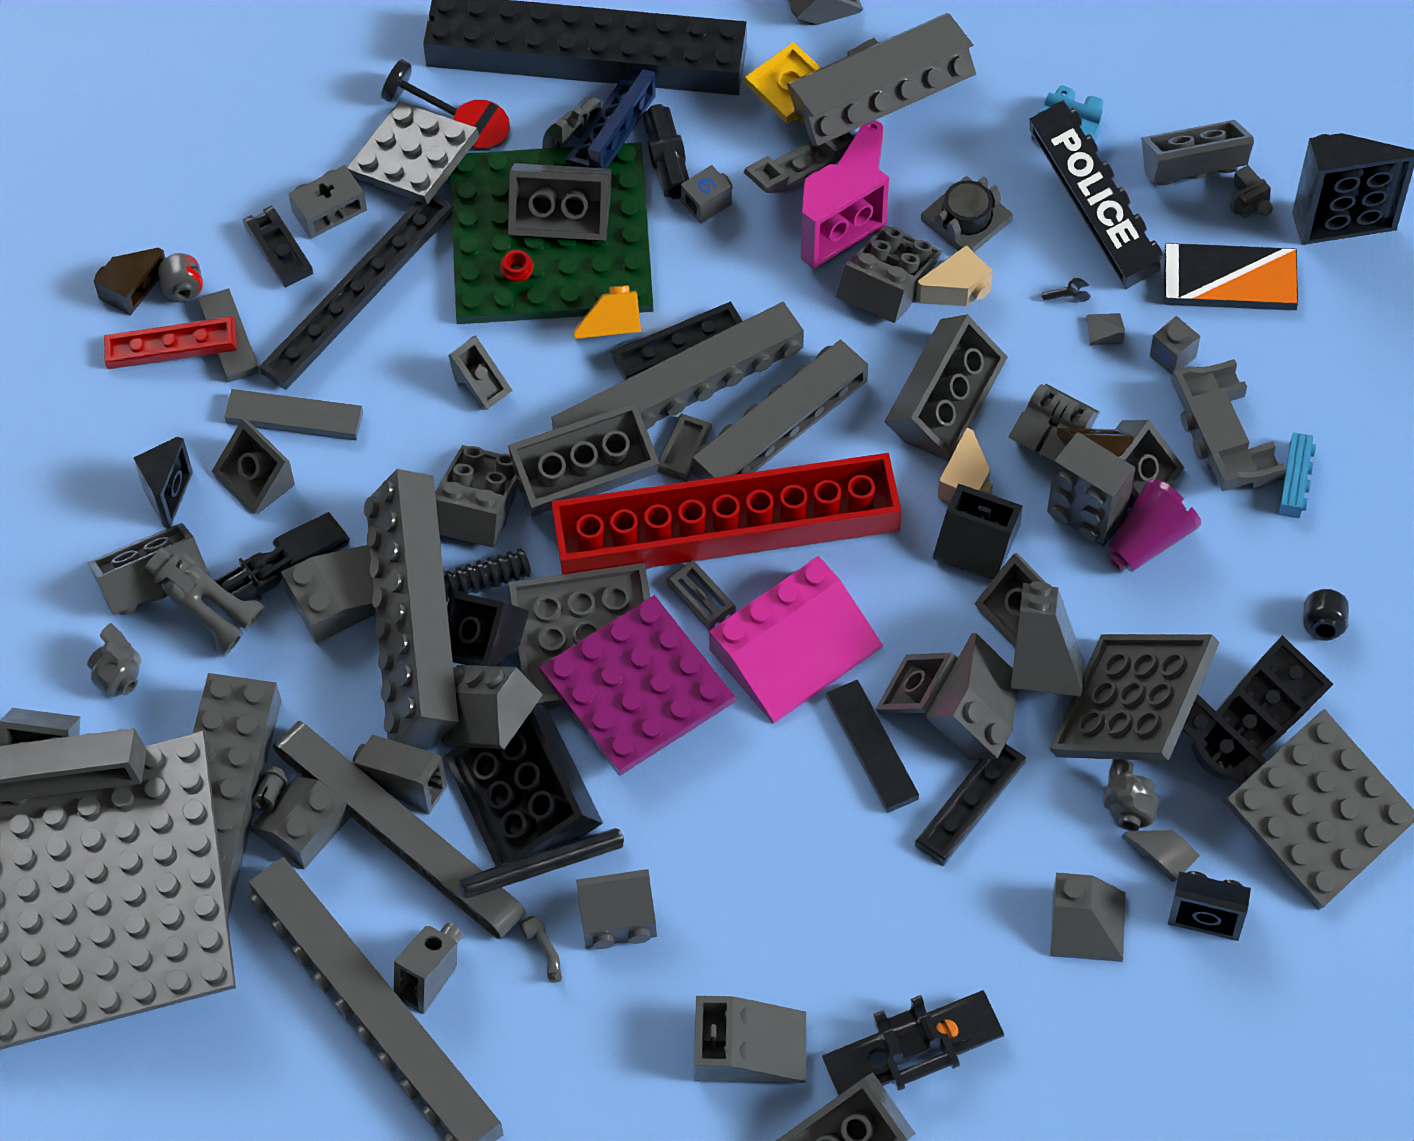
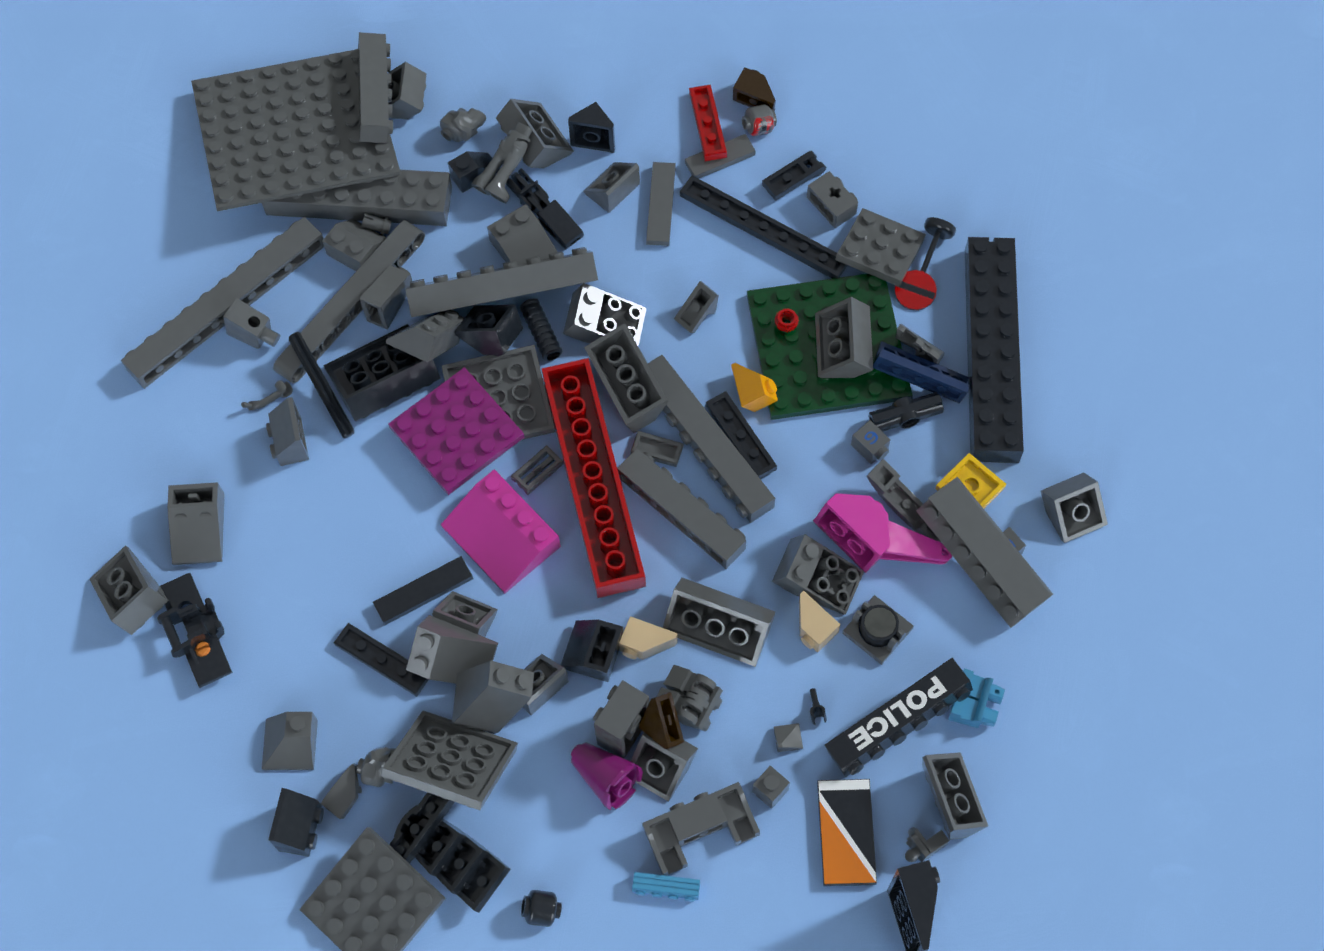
camera: 85 degrees right, 5 degrees up
(195, 654) = (467, 167): none -> black slope

